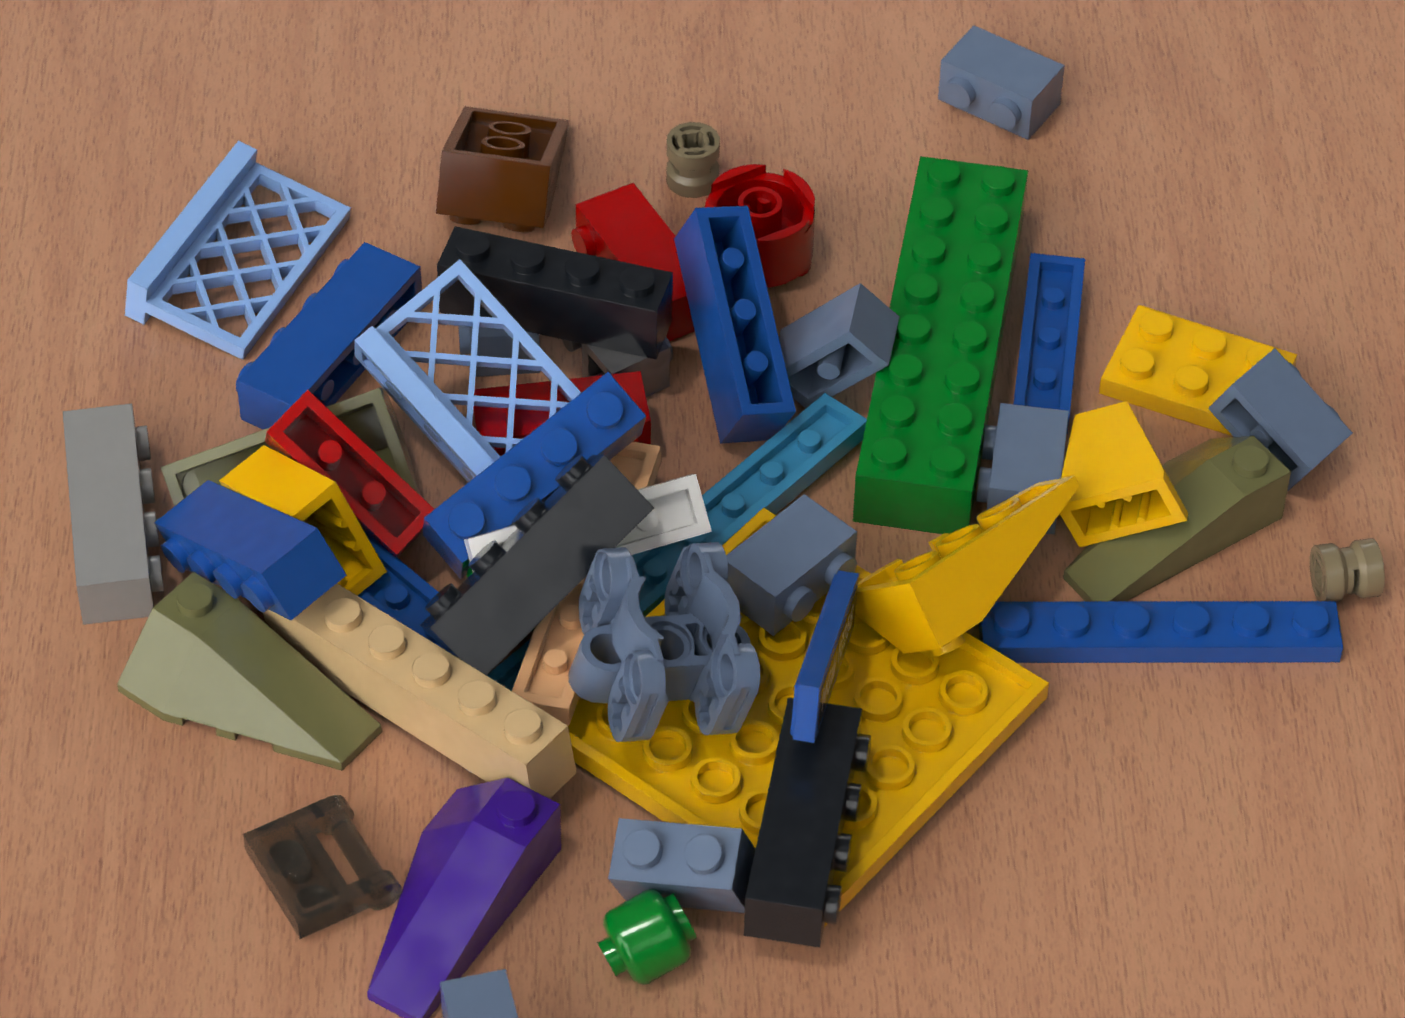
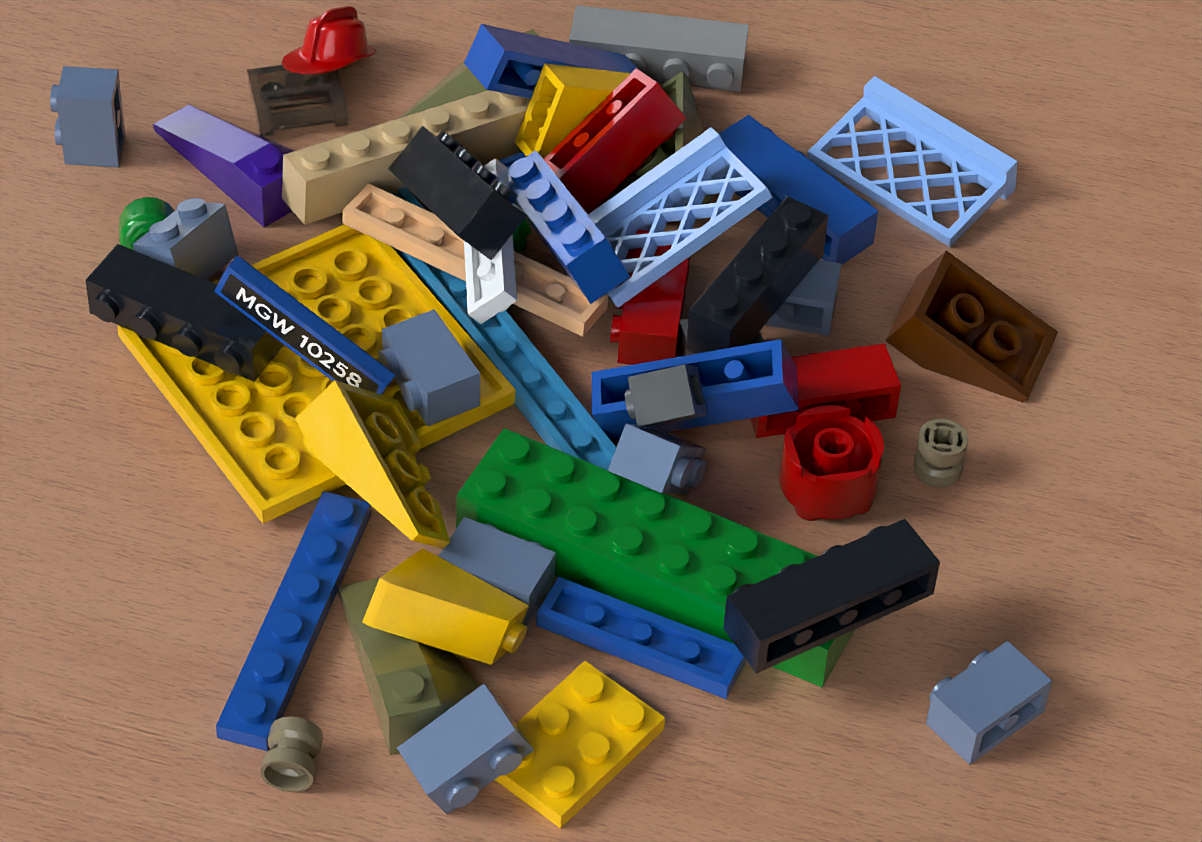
camera: 105 degrees right, 0 degrees up
(230, 844) = (330, 43): none -> red piece
(647, 661) = (367, 256): sand blue piece -> none
(792, 308) = (665, 396): none -> dark grey brick
(991, 149) = (830, 595): none -> black brick

